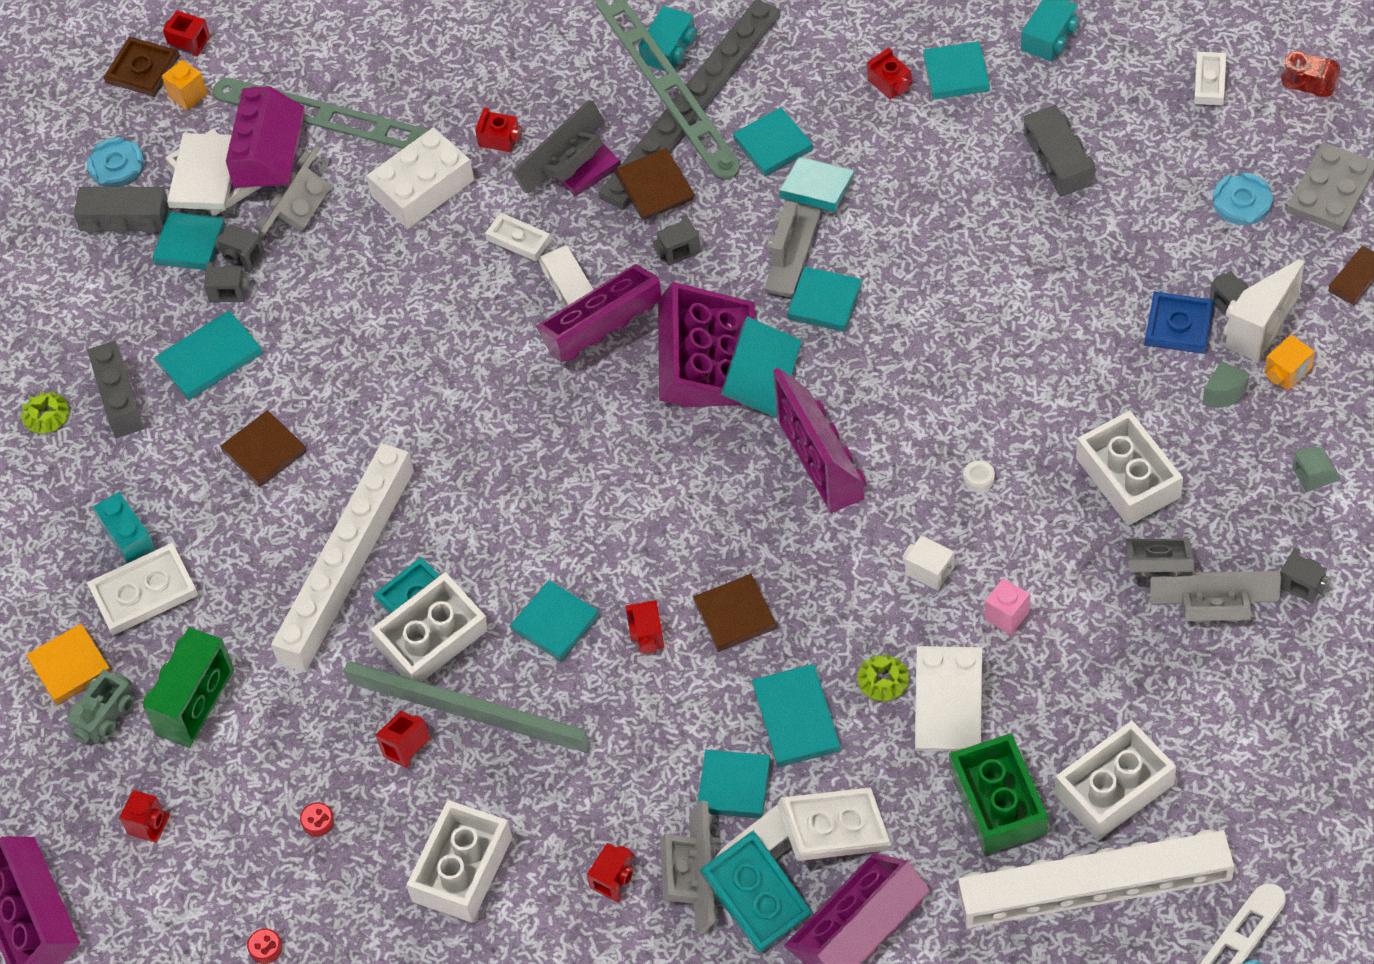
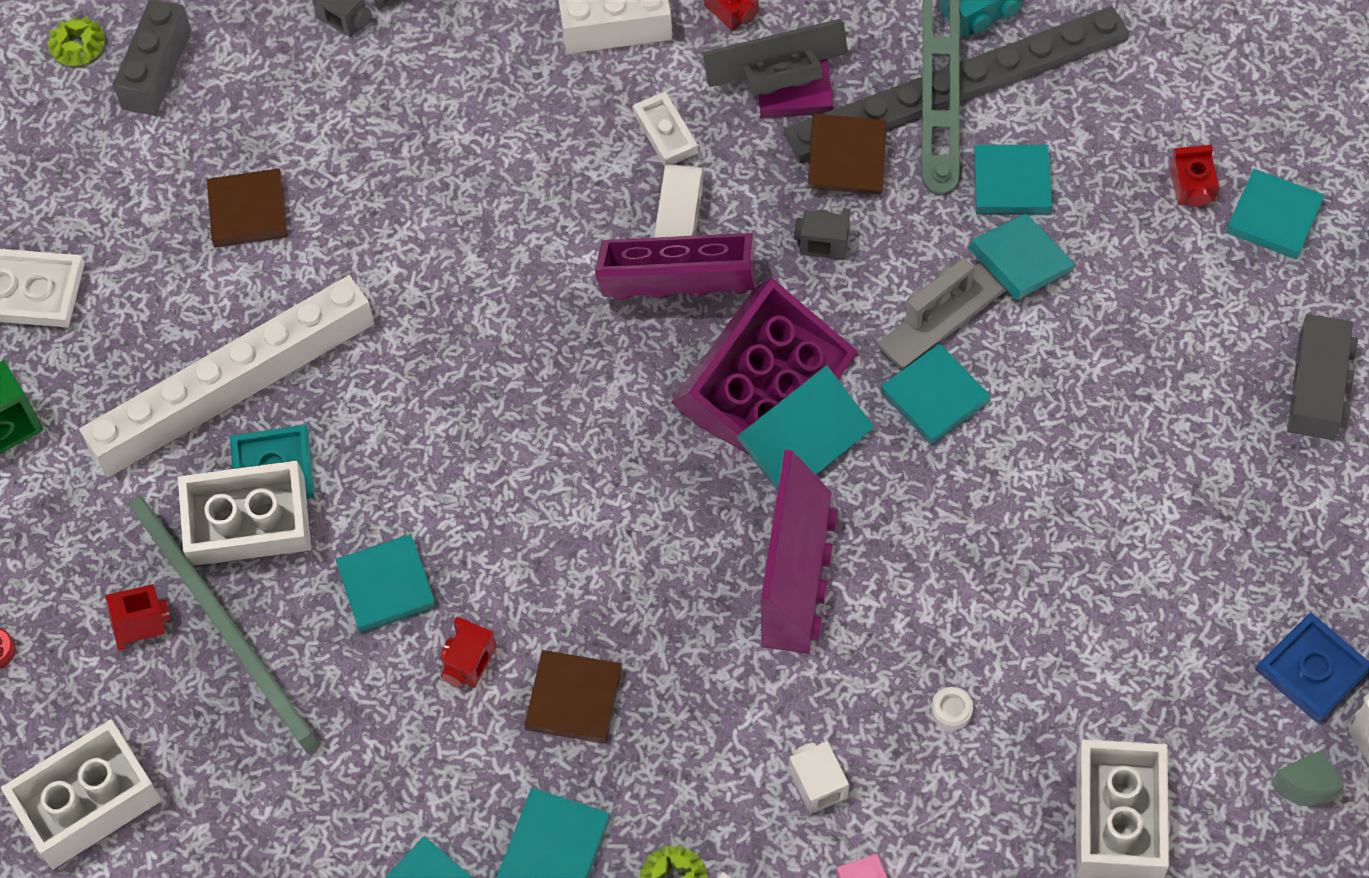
camera: 30 degrees right, 5 degrees up
(123, 528) = (47, 211): teal brick -> none
(208, 355) = (271, 74): teal tile -> none

